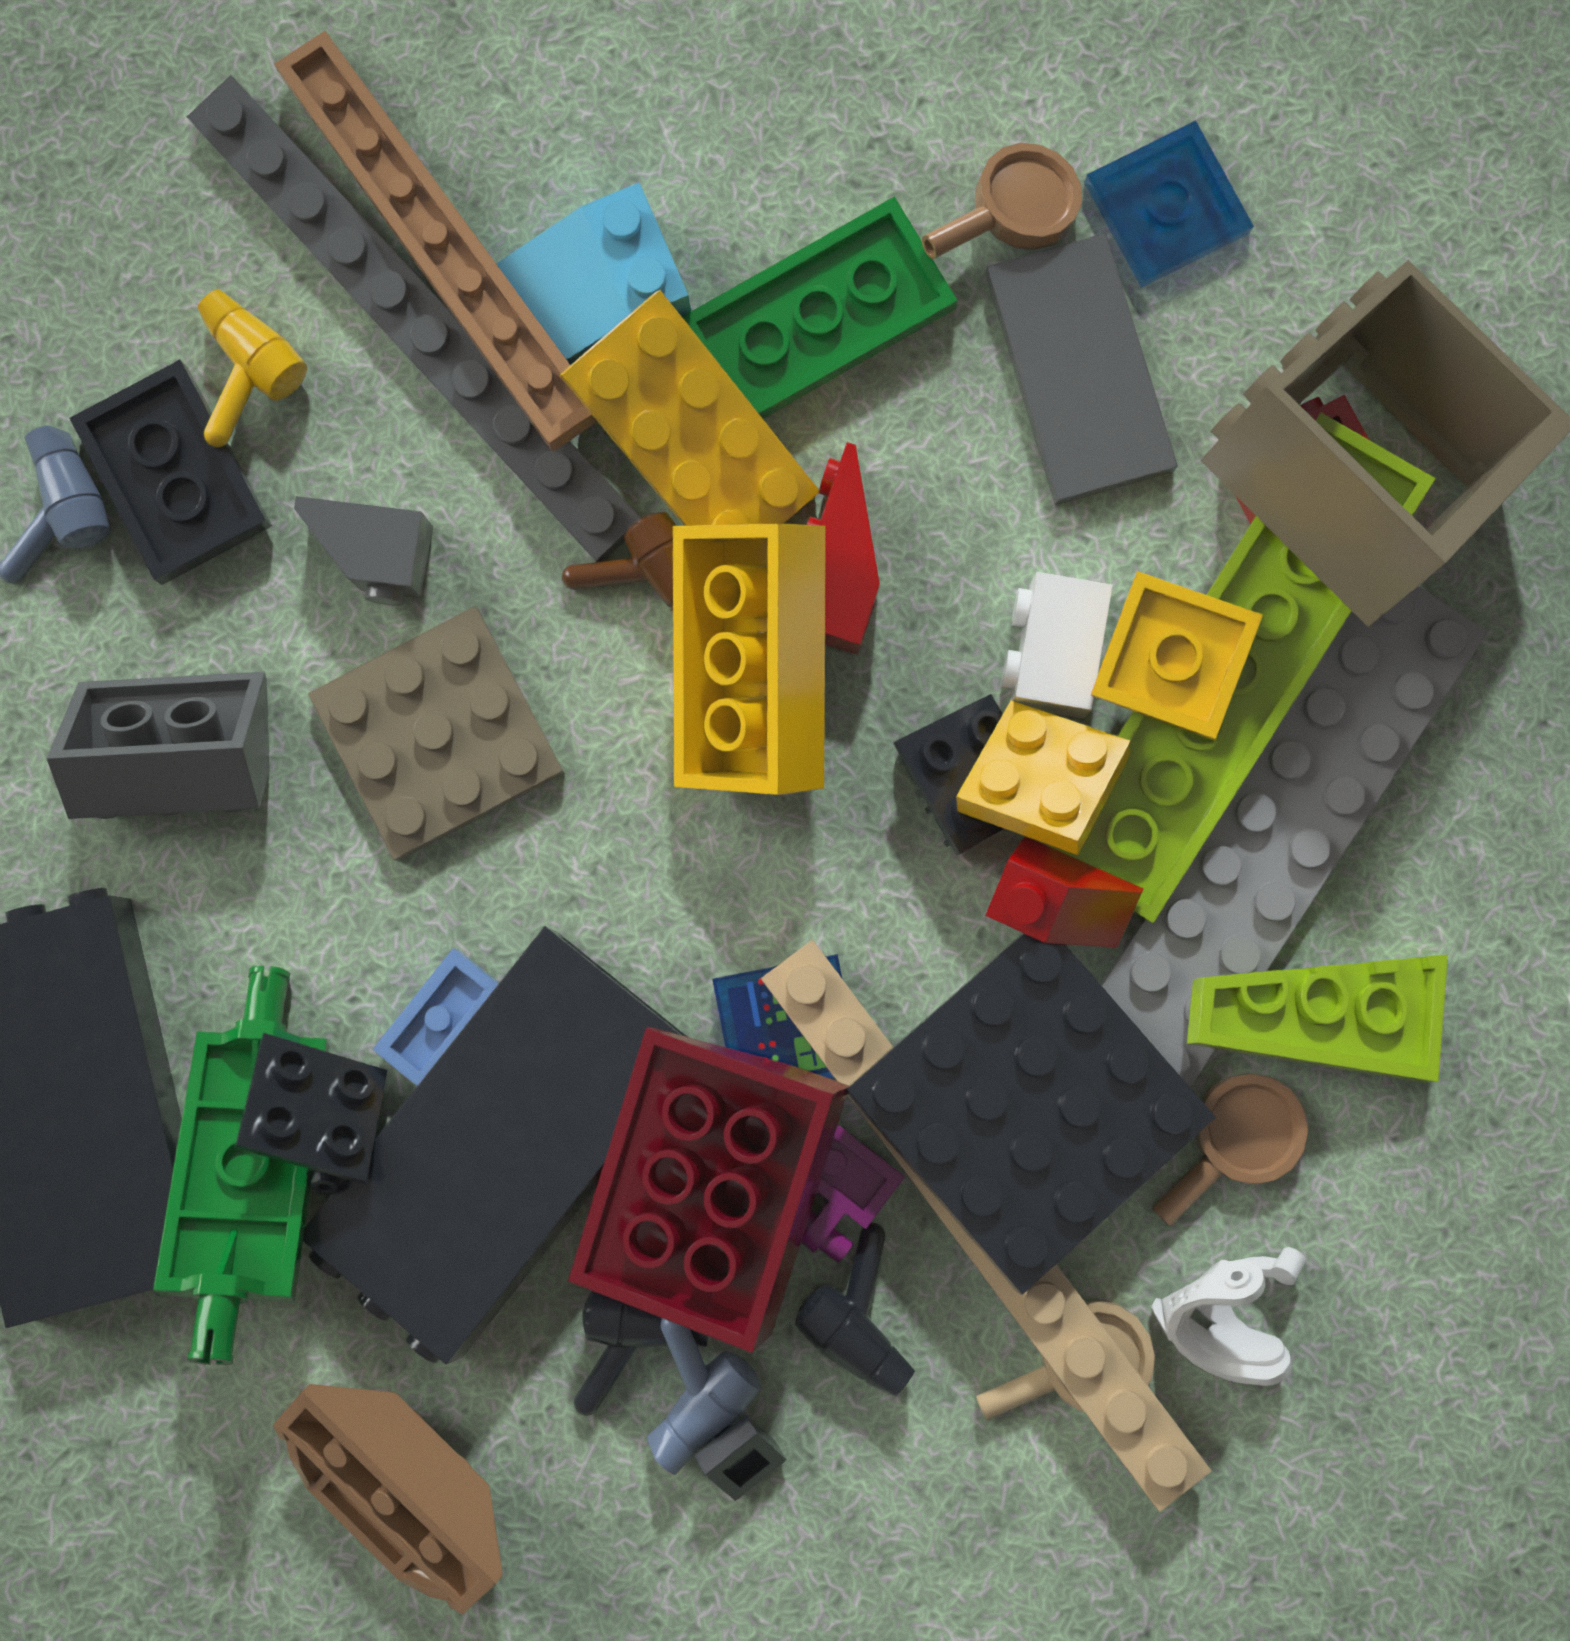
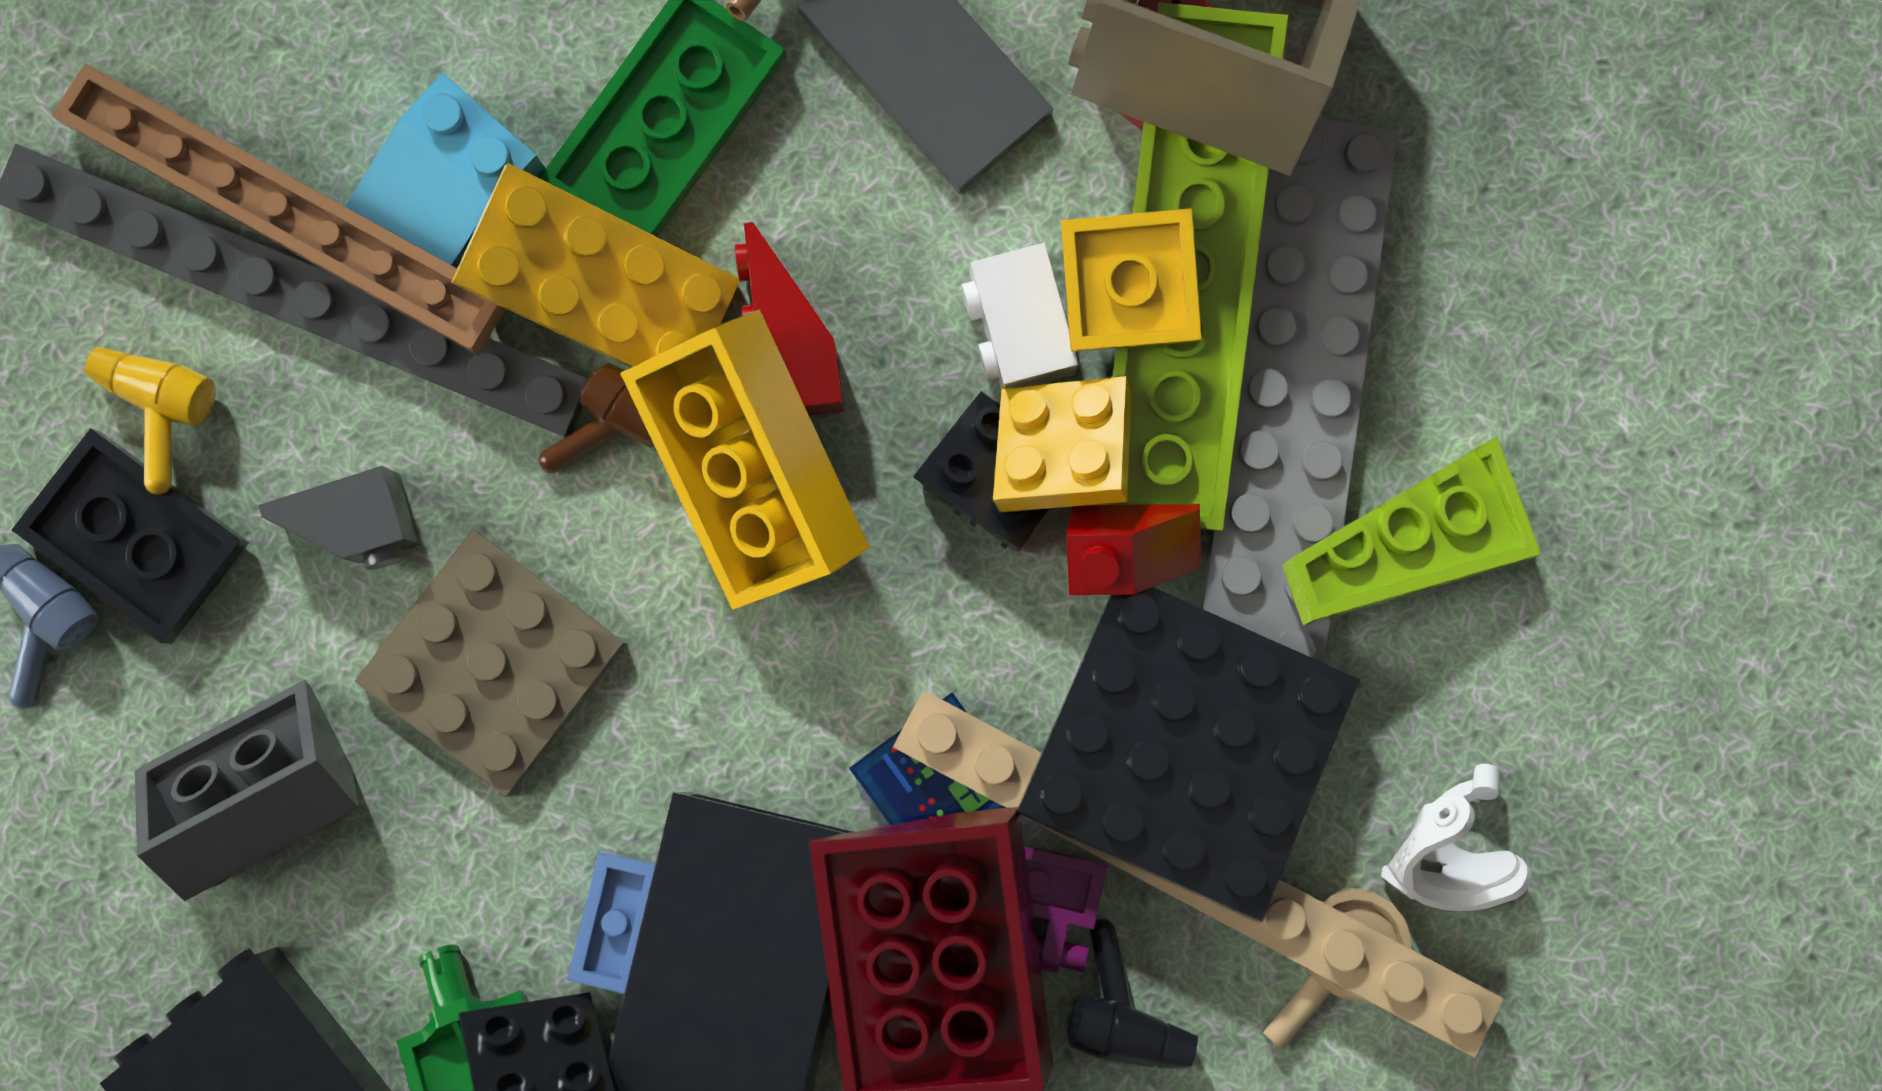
camera: 30 degrees left, 0 degrees up
(1252, 1140) = (1400, 685): medium nougat piece -> none

